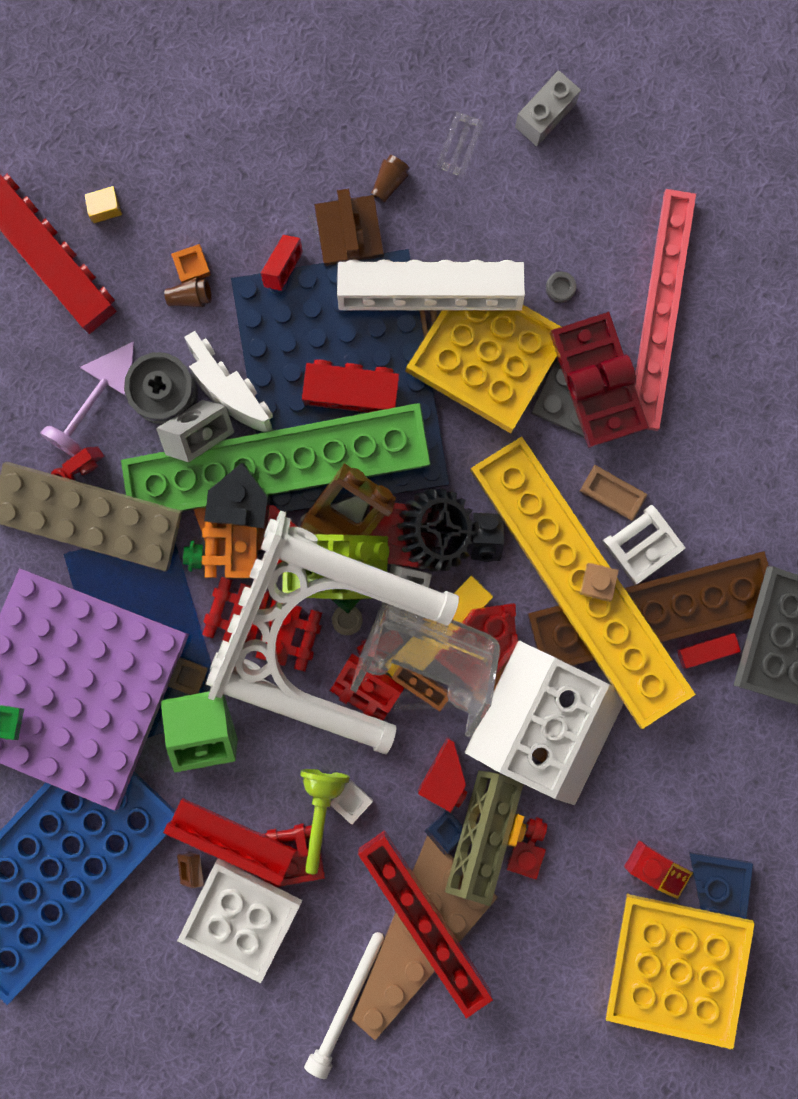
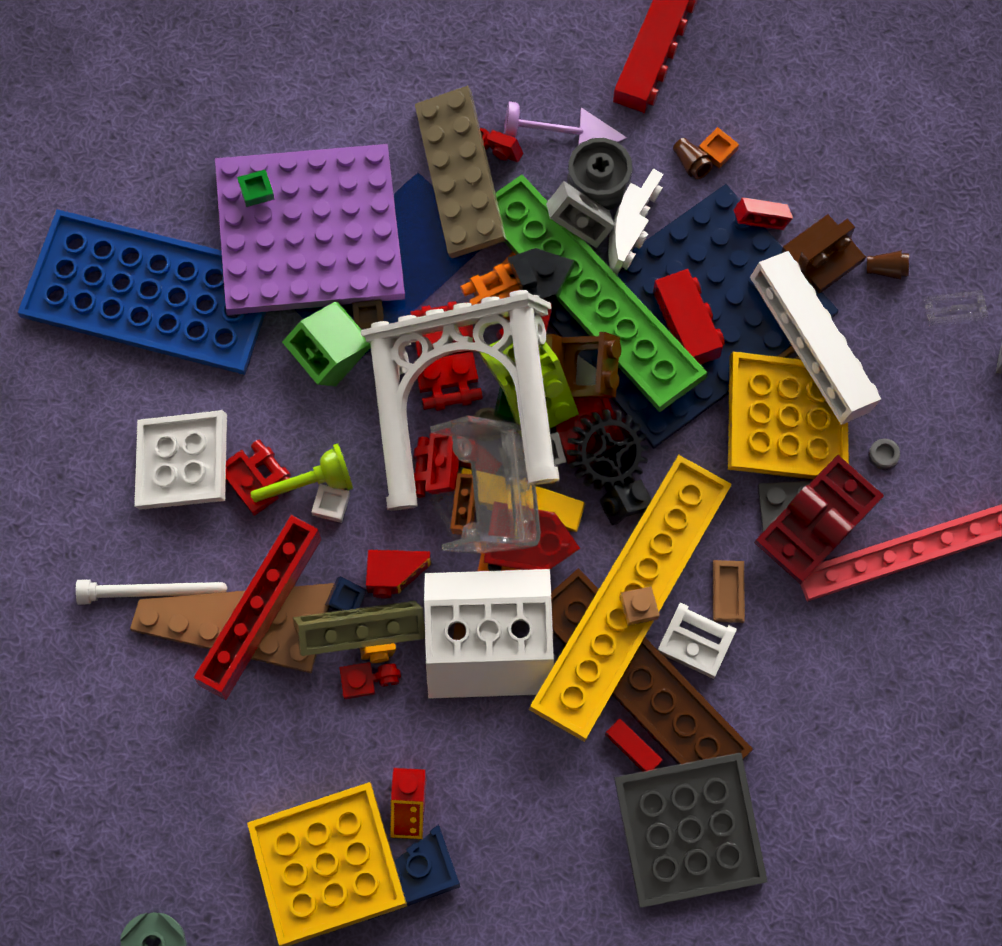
camera: 65 degrees right, 15 degrees down
(102, 205) = (726, 58): slope -> none
(190, 870) = (204, 400): reddish brown tile -> none
(193, 556) = (471, 268): green plate -> none
(230, 841) = (246, 416): red fence -> none

